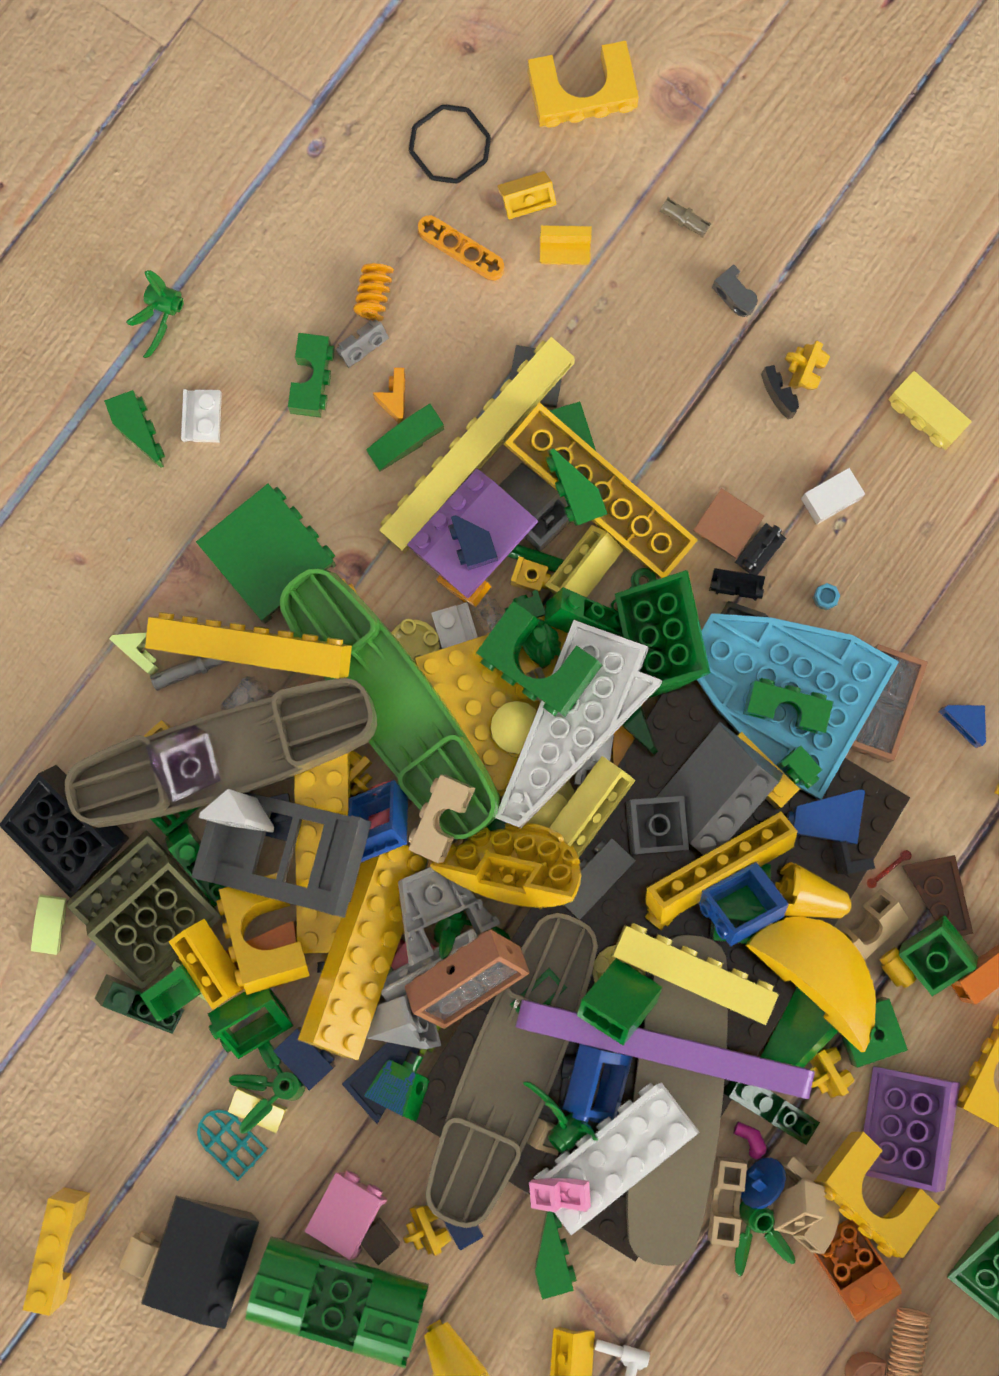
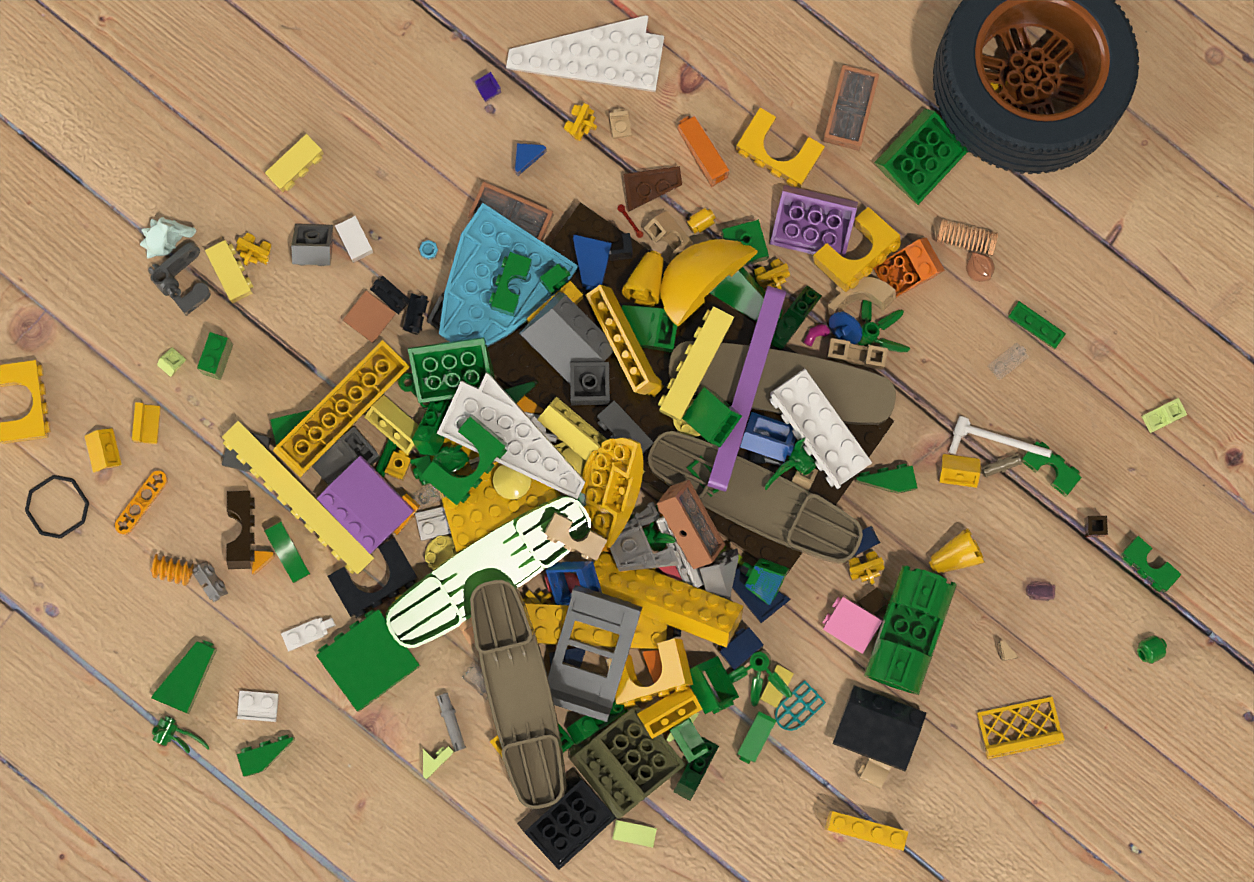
camera: 90 degrees left, 0 degrees up
(183, 1086) = (756, 737): none -> green slope
(184, 762) = (523, 719): slope -> none
(229, 320) = (186, 679): none -> green slope
(237, 811) = (561, 683): white slope -> none
(249, 646) = (439, 673): yellow brick -> none
(300, 471) = (306, 633): none -> white hinge
(309, 397) = (216, 617): green arch -> none
(382, 588) = (357, 601): none -> black arch
(398, 373) = (240, 552): none -> dark brown arch
(475, 543) = (375, 501): dark blue slope -> none
(559, 1193) = (842, 468): bright pink slope -> none
(580, 494) = (346, 421): green slope -> none
(649, 272) = (171, 361): none -> yellowish green slope
(660, 322) = (215, 356): none -> green brick
(685, 217) = (131, 331): dark tan pin -> none
(762, 889) = (640, 311): blue window -> none
(766, 253) = (164, 274): none -> dark grey piece
(775, 336) = (229, 271): none -> light yellow brick
(782, 398) = (278, 268): black slope -> none
(799, 1207) = (862, 303): tan brick -> none
(816, 248) = (163, 236): none -> light aqua head
(820, 441) = (312, 244): none -> dark grey slope
(938, 956) = (694, 192): green brick -> none

